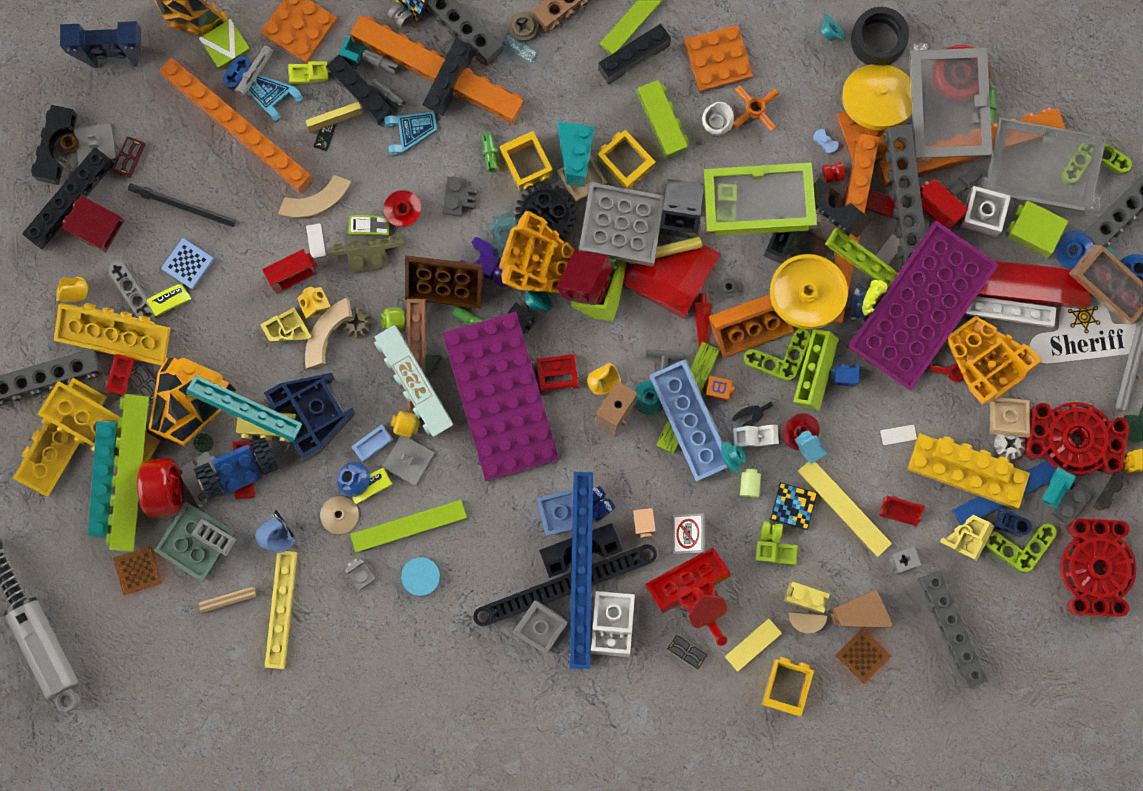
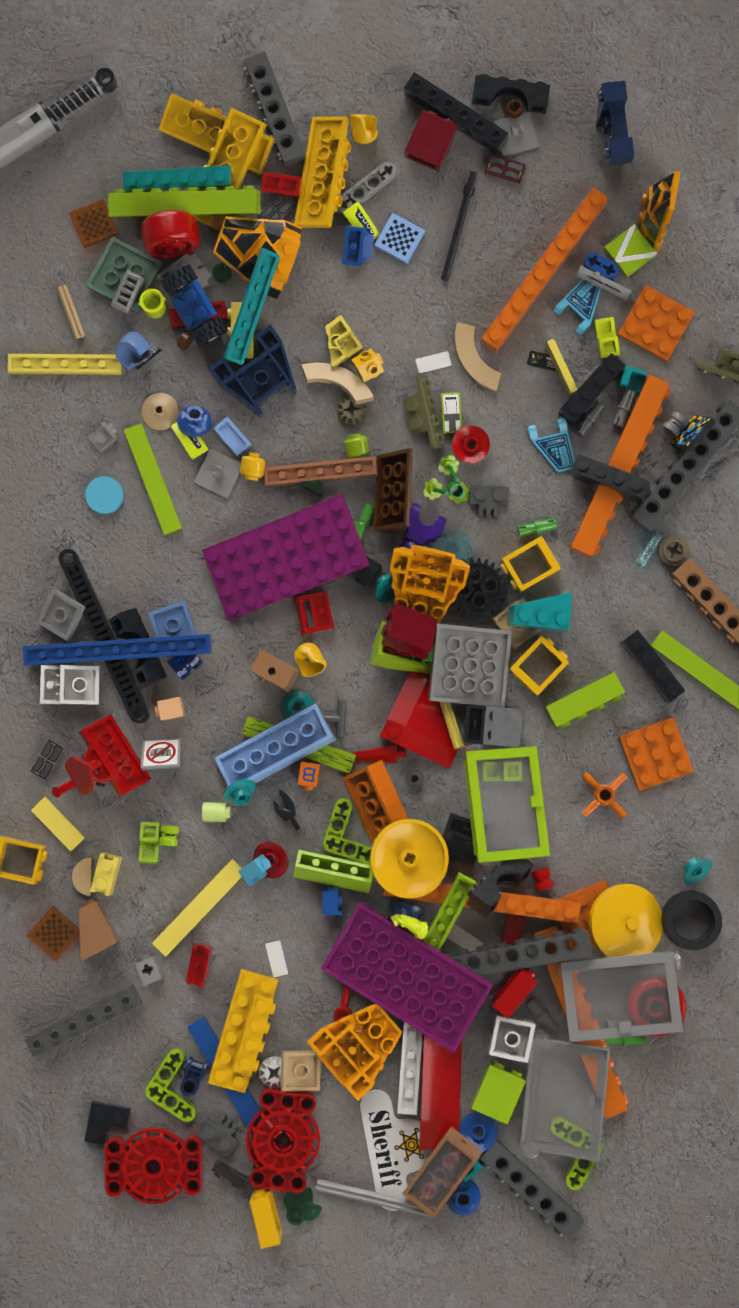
camera: 90 degrees right, 5 degrees up
(191, 305) = (357, 245): none -> blue slope
(228, 512) = (153, 303): none -> neon yellow piece
(269, 483) = (185, 341): none -> reddish brown tile
(290, 270) = (396, 338): red window -> none
(413, 380) = (293, 471): light aqua brick -> none
(447, 224) = (455, 490): none -> lime plant
(718, 118) = (589, 756): white hair -> none
(756, 436) = (264, 815): white slope -> none
(793, 506) = (197, 856): tile -> none
(825, 141) = (575, 869): light blue piece -> none
(970, 537) = (176, 1034): light yellow slope -> none
(1048, 619) = (101, 1117): none -> black plate
(1060, 483) = (235, 1123): teal piece -> none

